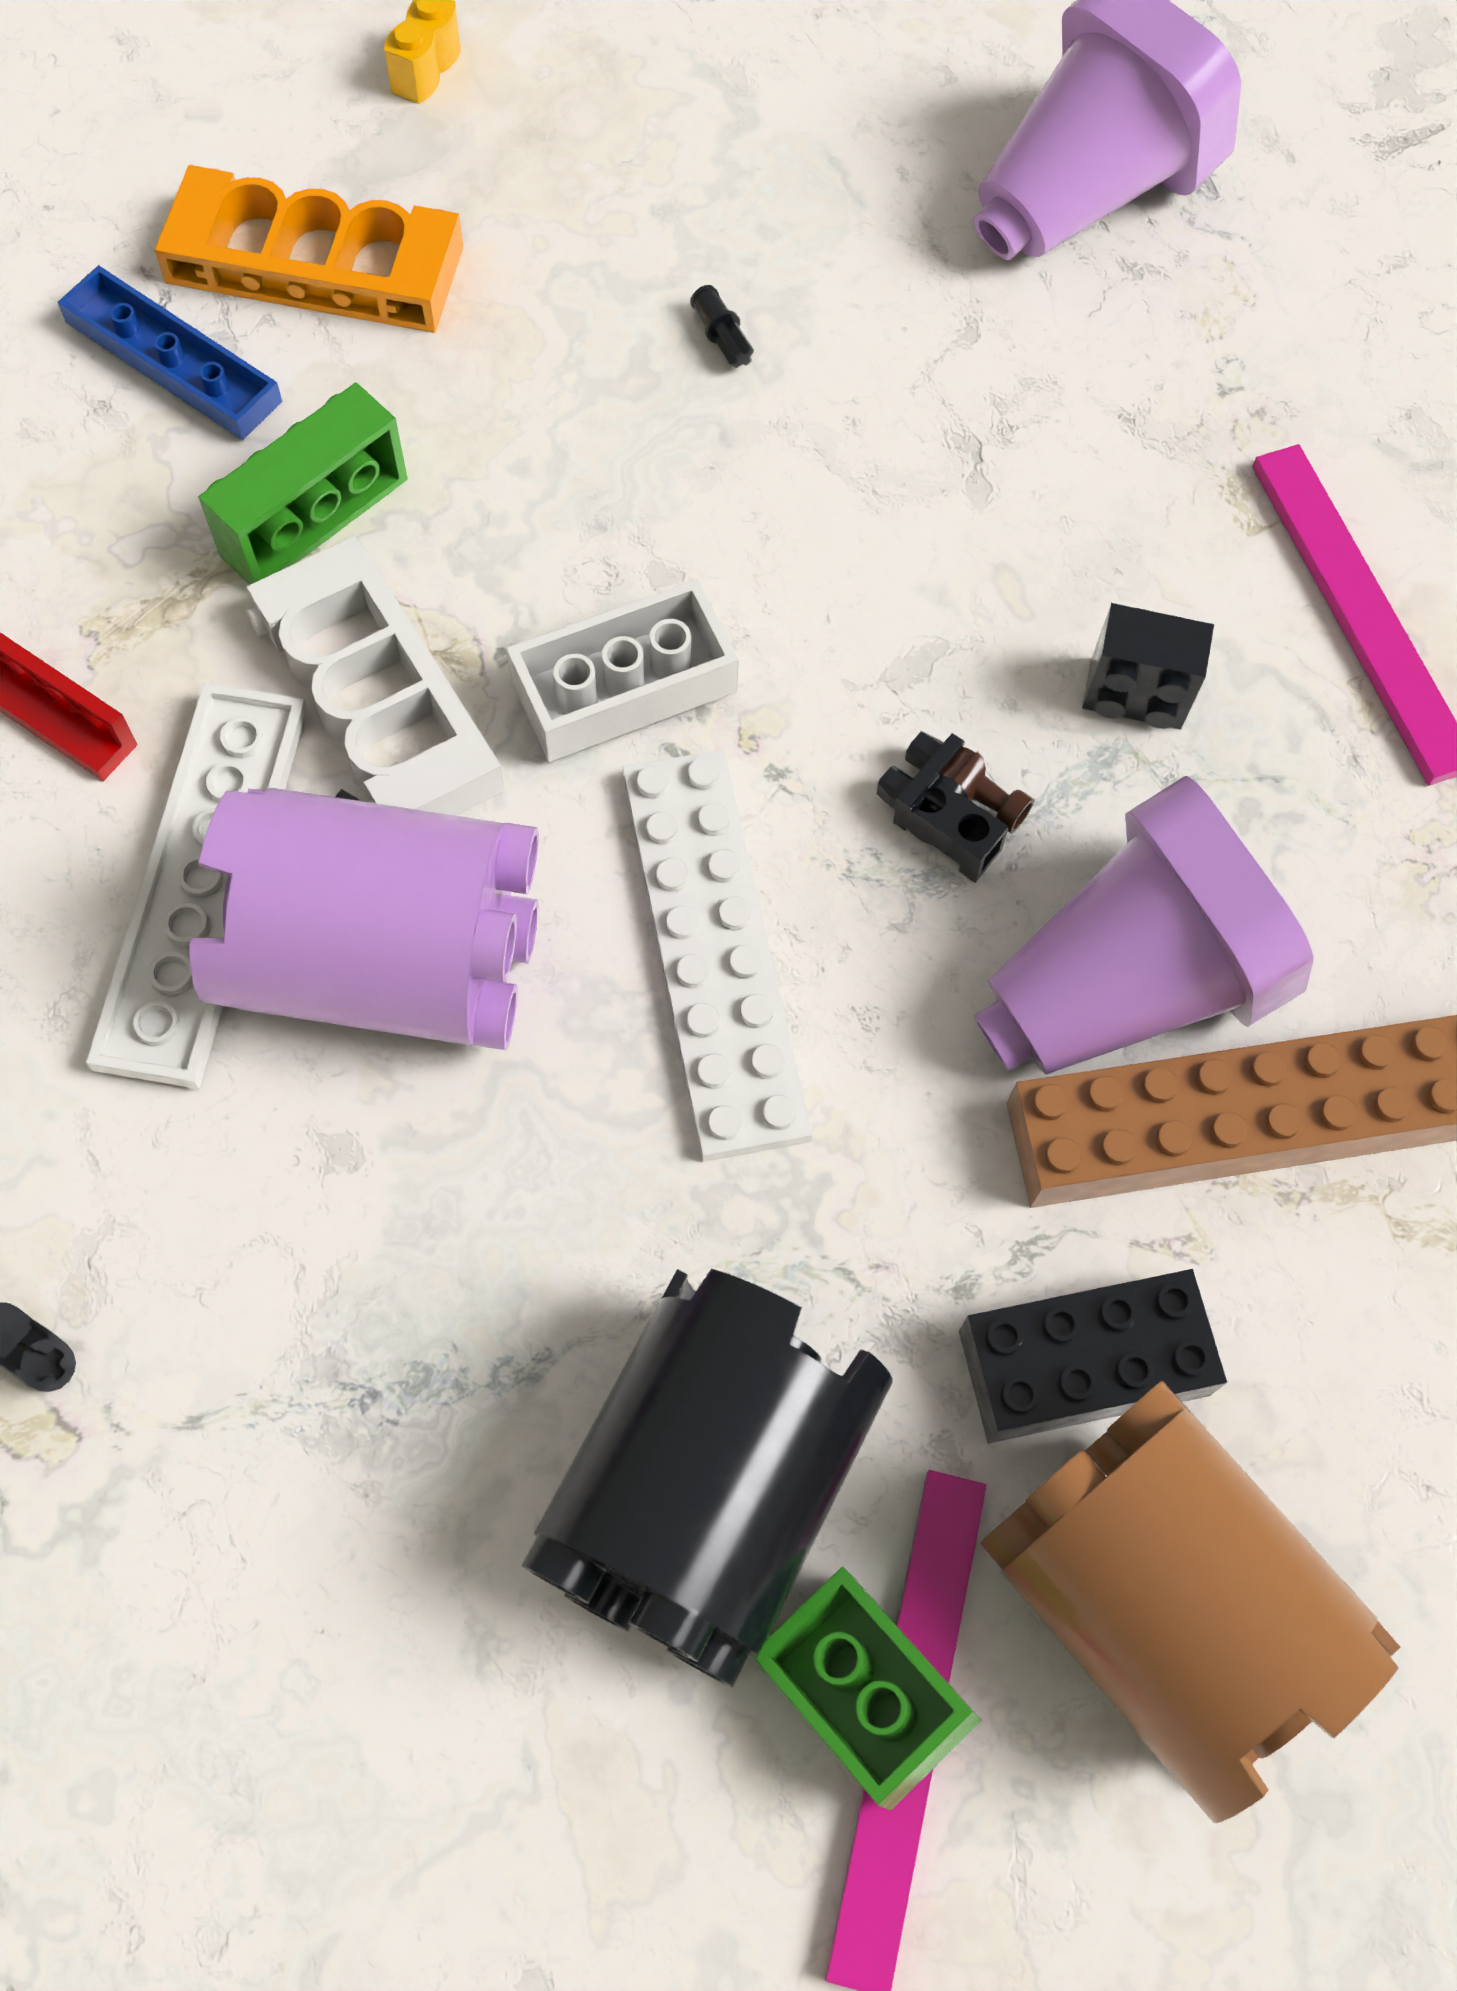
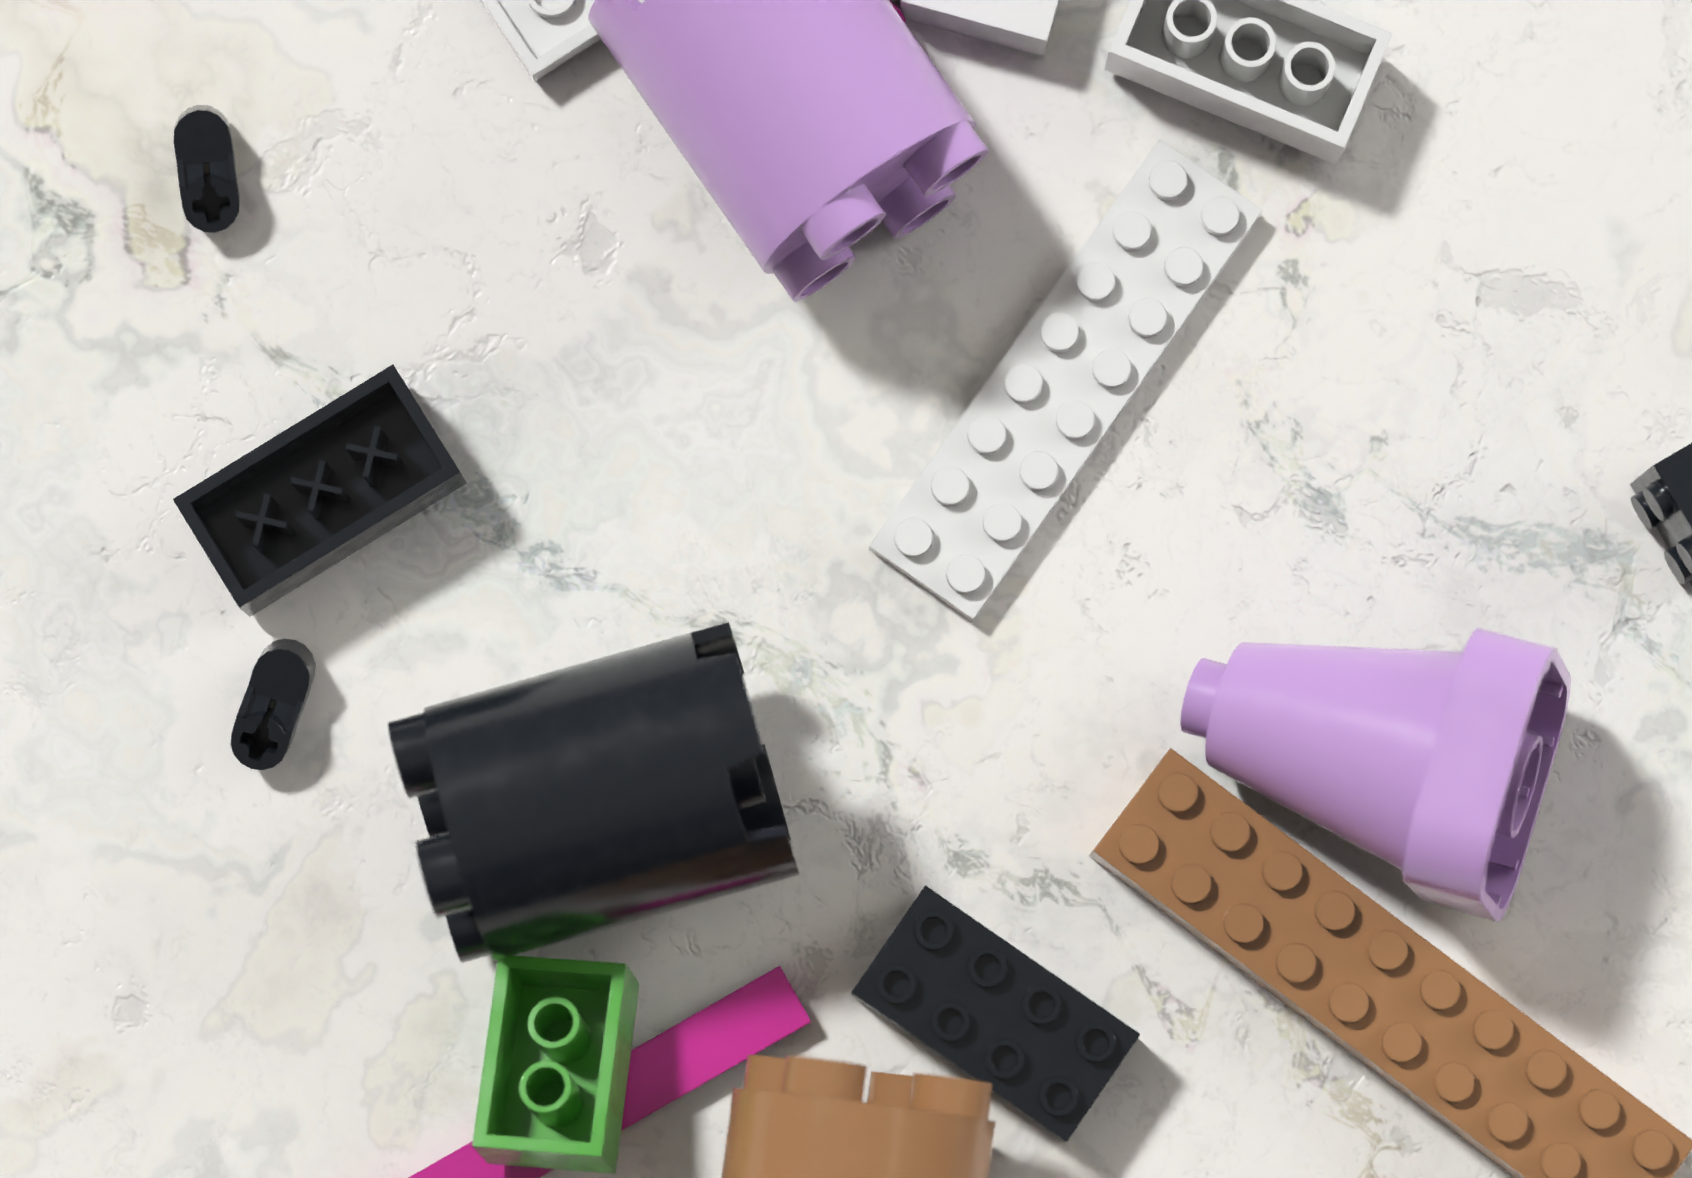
camera: 50 degrees right, 15 degrees up
(310, 1475) = (319, 491): none -> black brick
(433, 1682) = (264, 733): none -> black piece
(940, 805) = (1400, 439): black hips -> none

